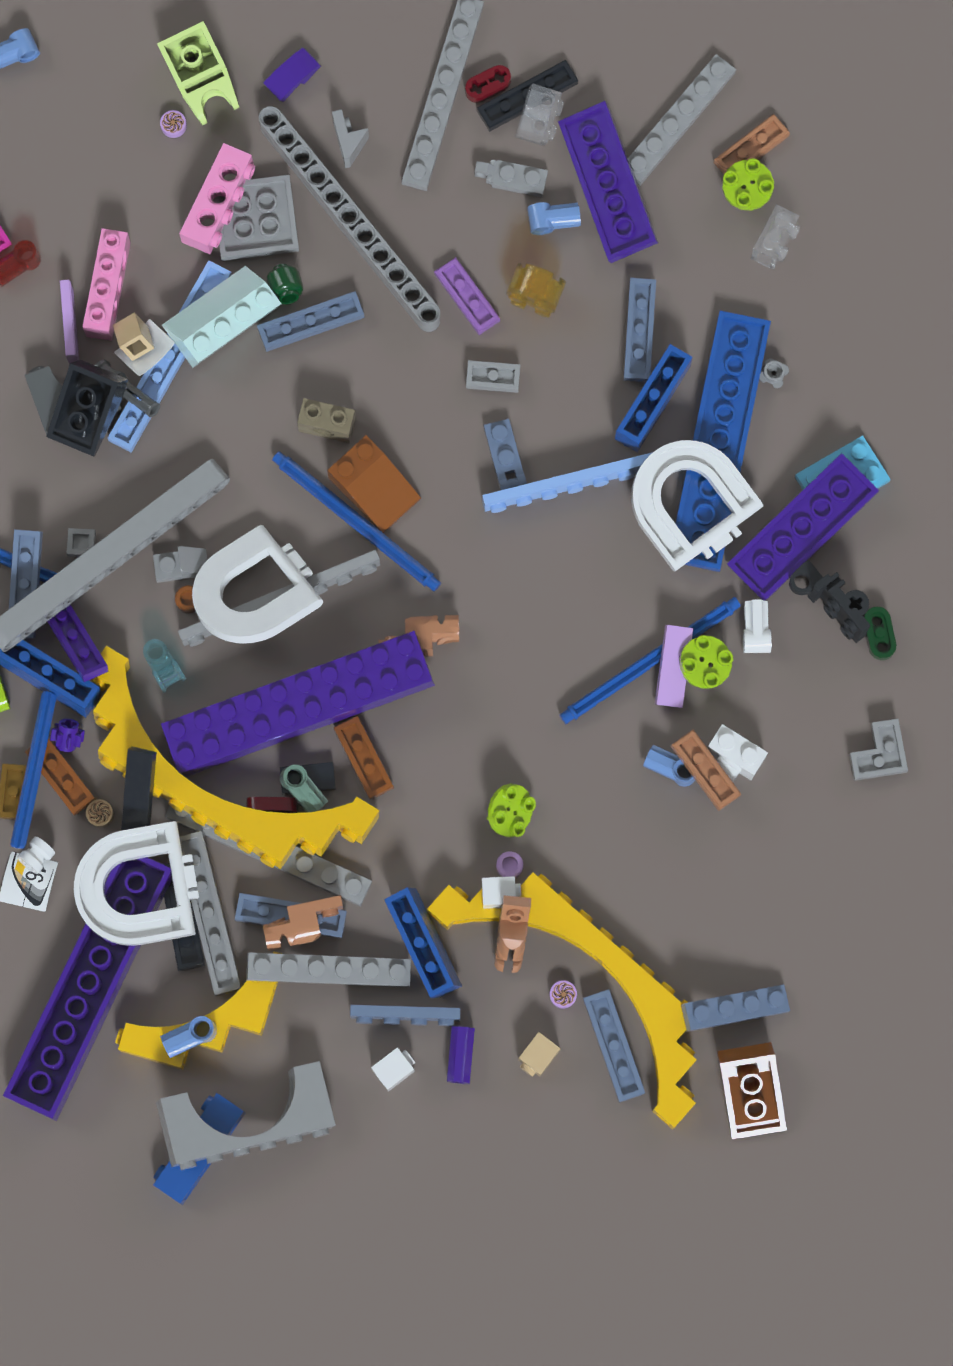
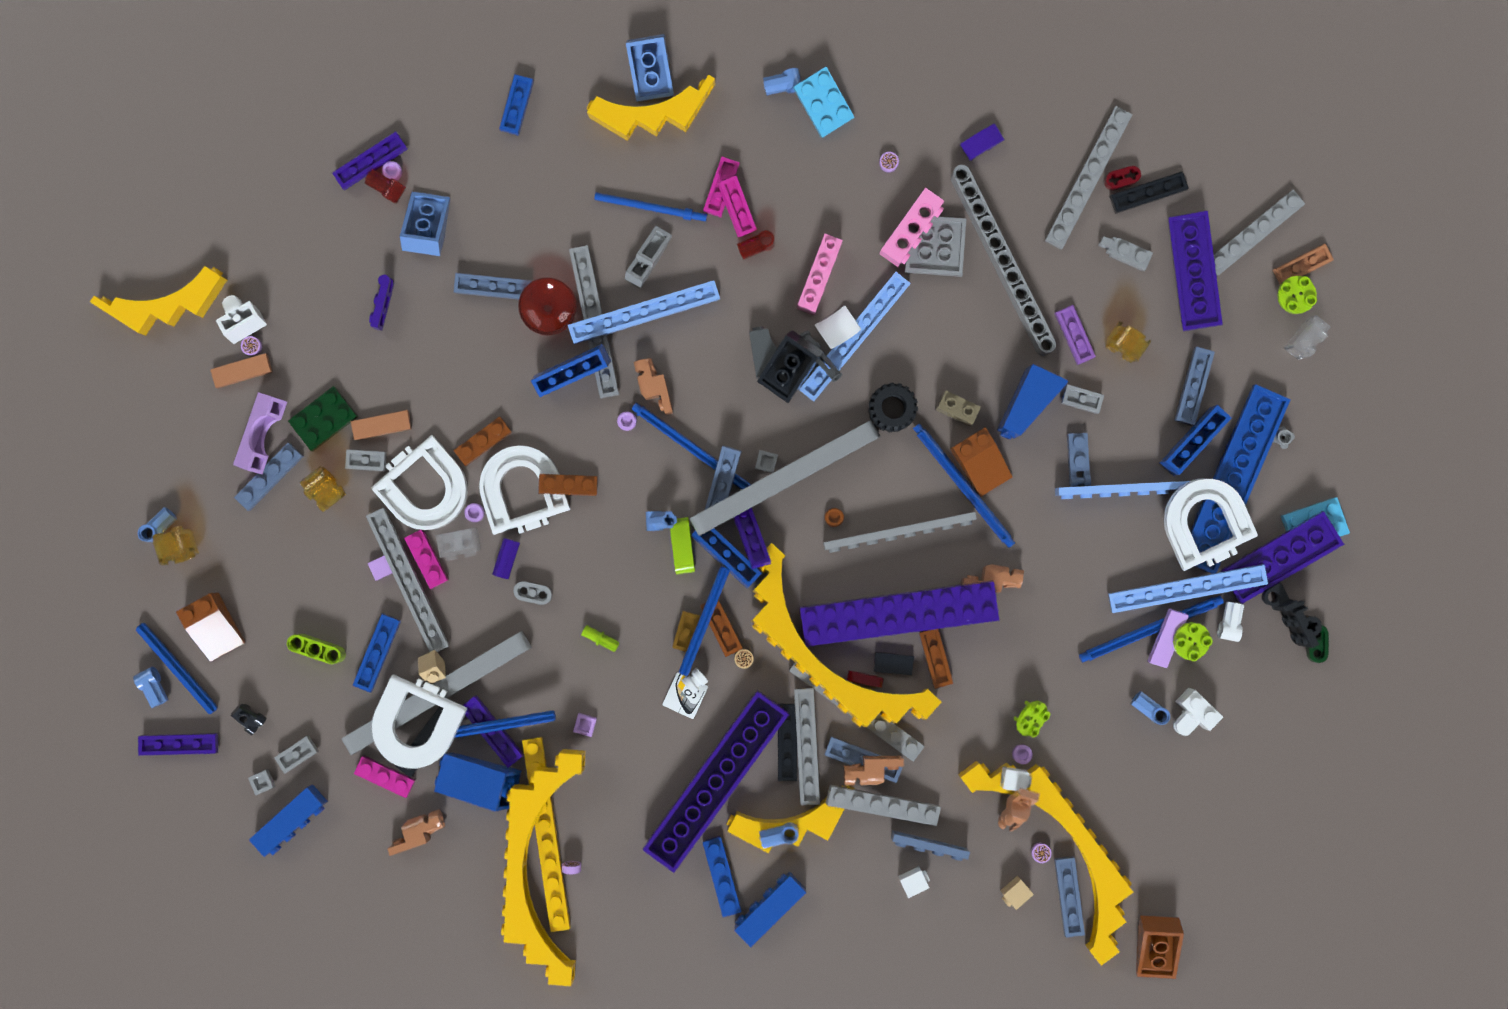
camera: 10 degrees right, 10 degrees up
(67, 735) = (731, 599): dark purple gear -> none
(69, 321) = (787, 296): lavender tile -> none
(70, 64) = (823, 102): none -> medium azure plate
(124, 1119) = (721, 876): none -> blue plate
(127, 846) = (756, 753): white piece -> none
(133, 336) = (832, 318): tan brick -> none
(138, 788) = (774, 660): black tile -> none
(164, 669) = (808, 564): clear light blue piece -> none
(179, 564) = (833, 491): light grey slope -> none
(193, 1140) = (846, 902): light grey arch -> none
(201, 78) = (916, 133): yellowish green brick -> none
(221, 315) = (898, 315): light aqua slope -> none
(234, 416) = (904, 395): none -> black tyre
(267, 620) = (882, 552): white piece -> none
(285, 283) = (947, 300): dark green head -> none
(305, 791) = (890, 674): sand green piece -> none
(310, 321) = (960, 331): sand blue plate -> none
(349, 142) = (1013, 203): light grey slope -> none
(422, 384) = (1030, 398): none -> blue slope
(423, 942) = (952, 800): blue brick -> none
(460, 1055) = (962, 881): dark purple axle -> none
(539, 115) = (1156, 210): clear brick -> none
(546, 218) = (1144, 288): medium blue piece -> none
(685, 594) = (1188, 588): none -> light blue plate
(706, 770) = (1176, 720): nougat tile -> none
(735, 1008) = (1160, 890): sand blue plate -> none
(886, 758) = (1304, 731): light grey plate -> none

